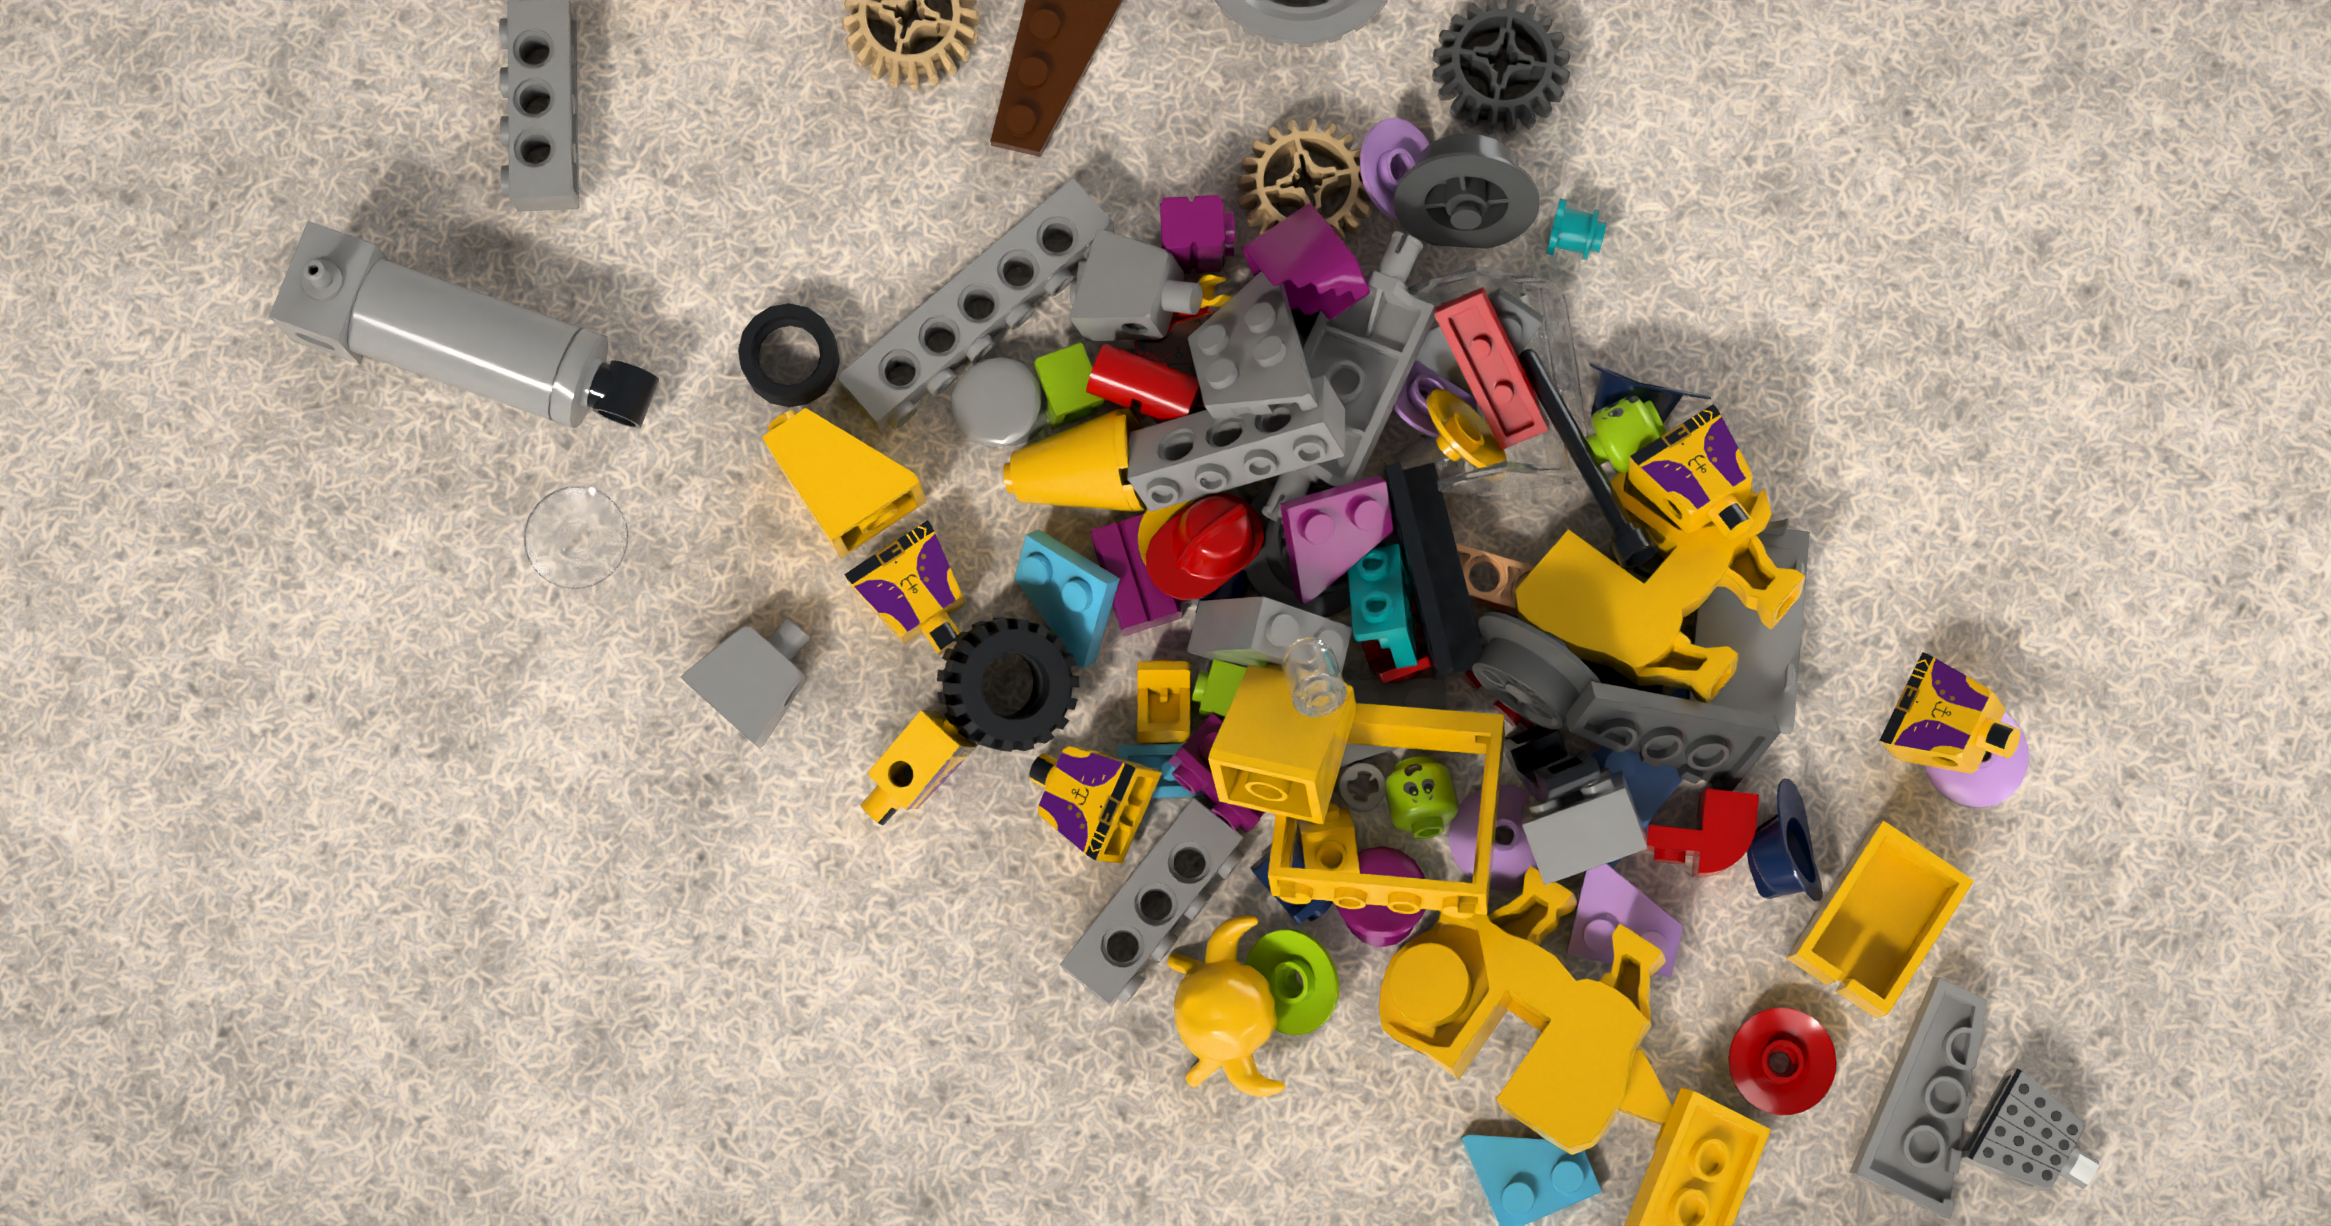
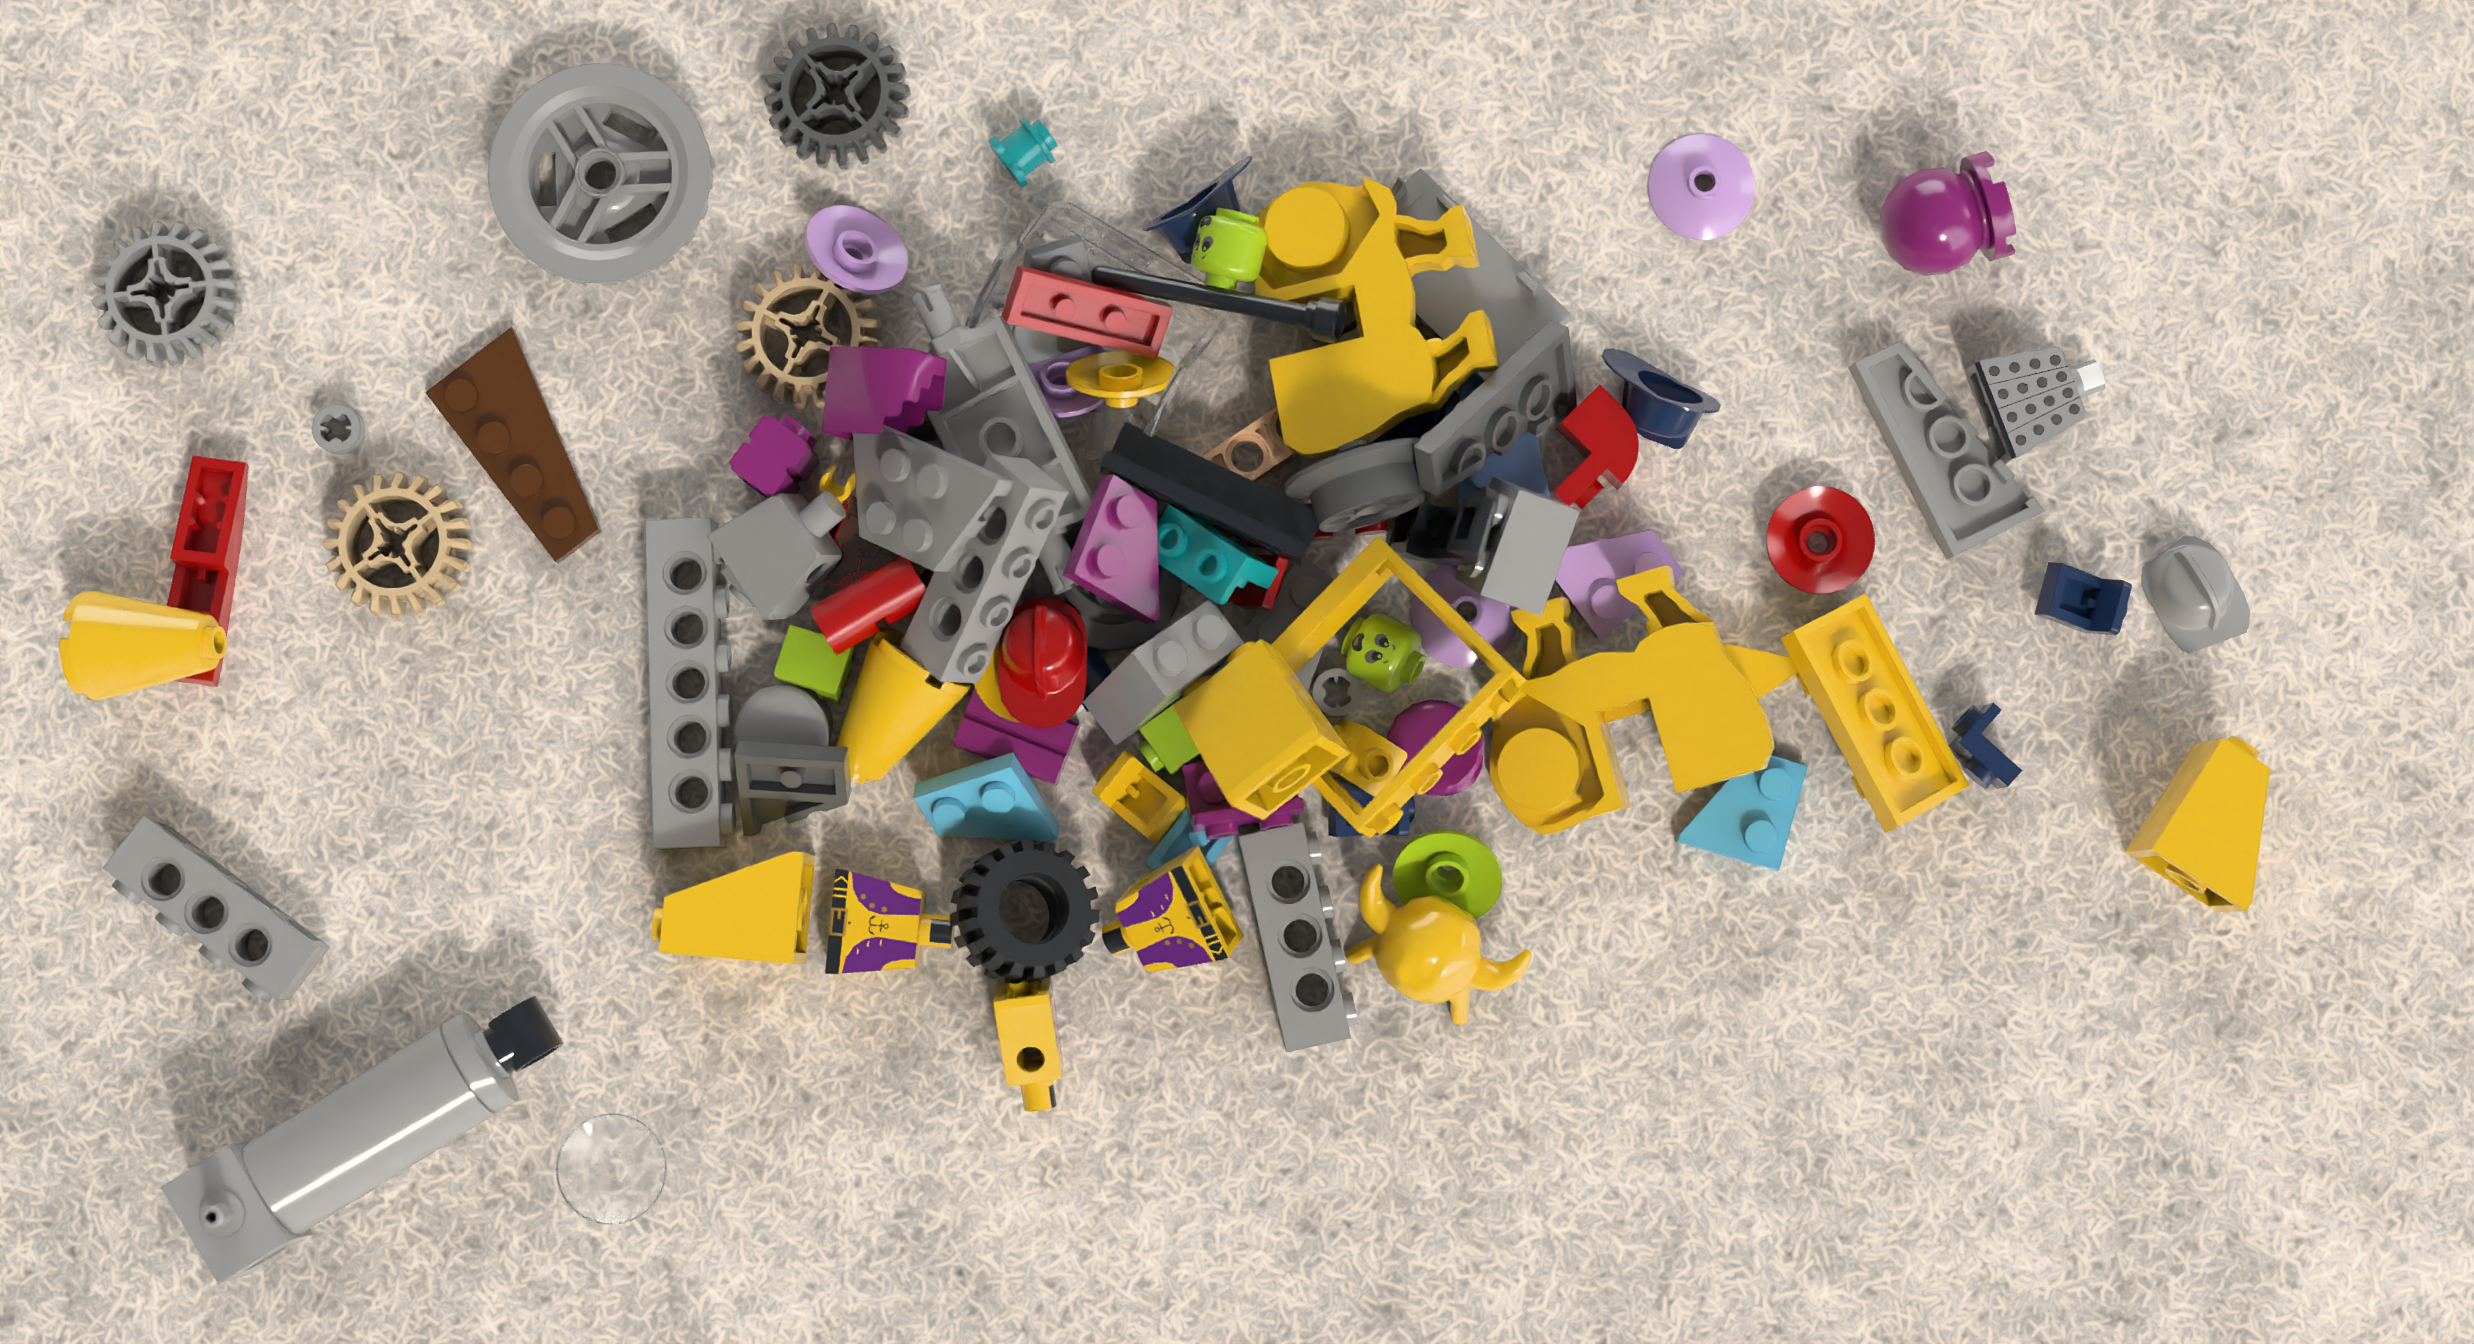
camera: 55 degrees left, 5 degrees up
(751, 678) = (848, 1117): light grey torso -> none
(785, 316) = (559, 867): black tyre -> none
(964, 434) = (789, 781): none -> dark grey wing
(1313, 677) = (1231, 665): clear brick -> none
(1466, 194) = (923, 212): dark grey wheel -> none
(1696, 475) = (1311, 222): torso -> none
(1880, 919) = (1773, 371): yellow piece -> none
(1947, 720) = (1660, 187): torso -> none
(2107, 954) = (1944, 217): none -> magenta tile

